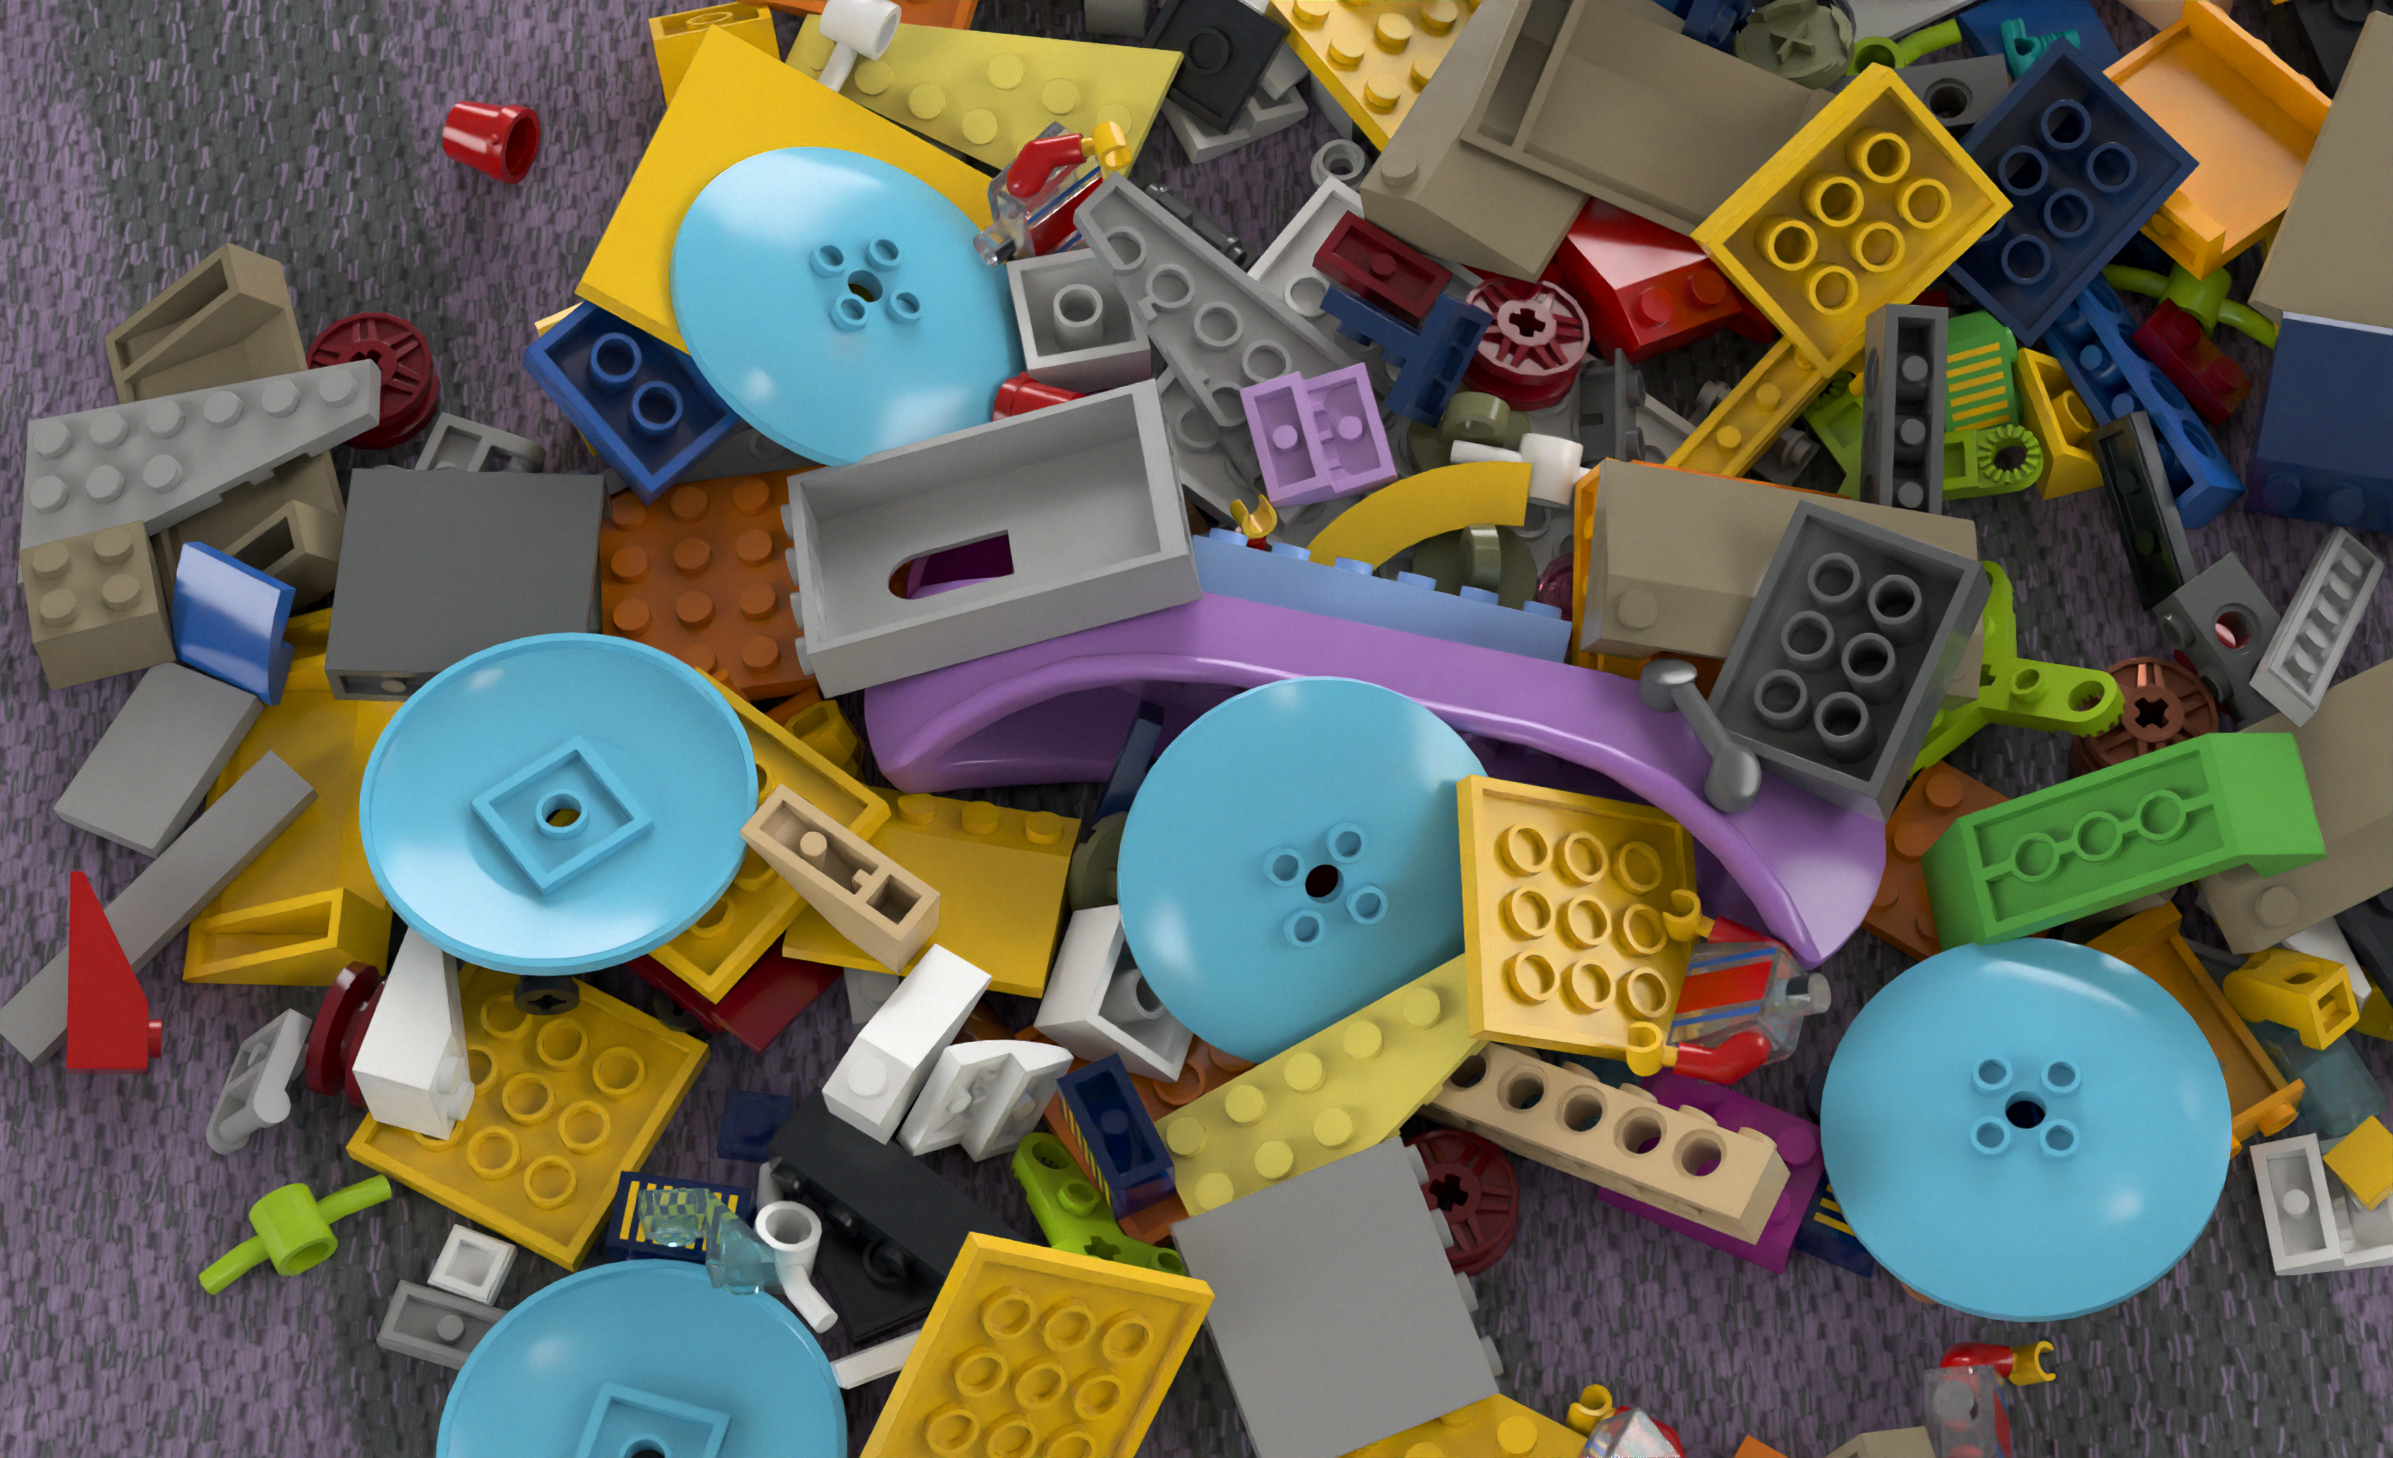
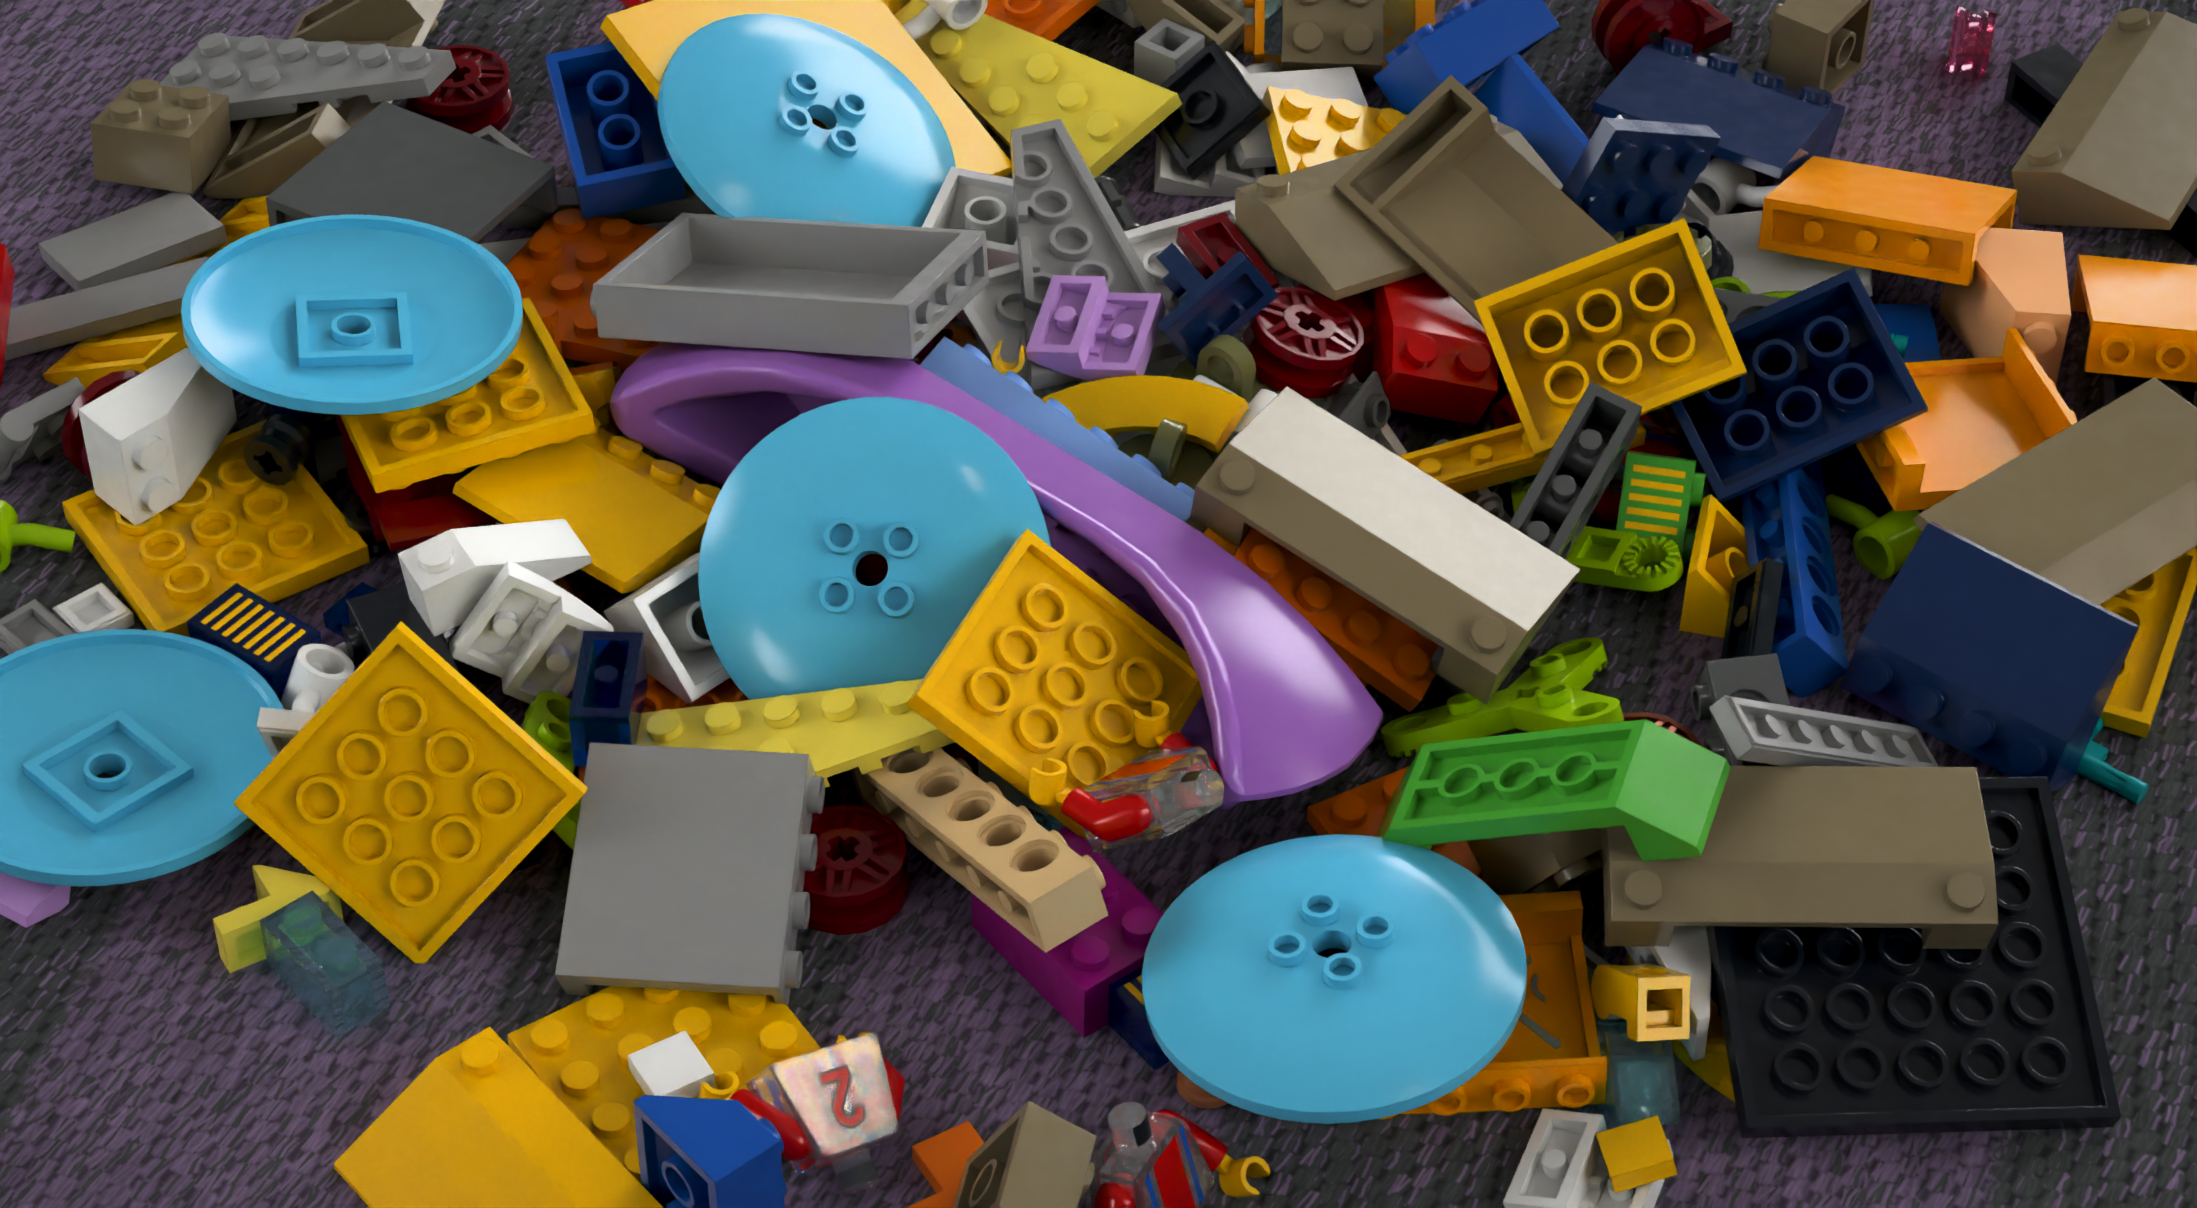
camera: 25 degrees right, 20 degrees down
(232, 621) = (233, 165): blue slope -> none
(734, 1253) = (259, 636): clear light blue slope -> none
(845, 878) = (521, 439): tan slope -> none
(1043, 187) = (989, 123): torso -> none
(1735, 771) = (1242, 609): dark grey bar -> none
(1848, 656) = (1391, 584): dark grey slope -> none
(2192, 361) = (1855, 566): dark red plate -> none

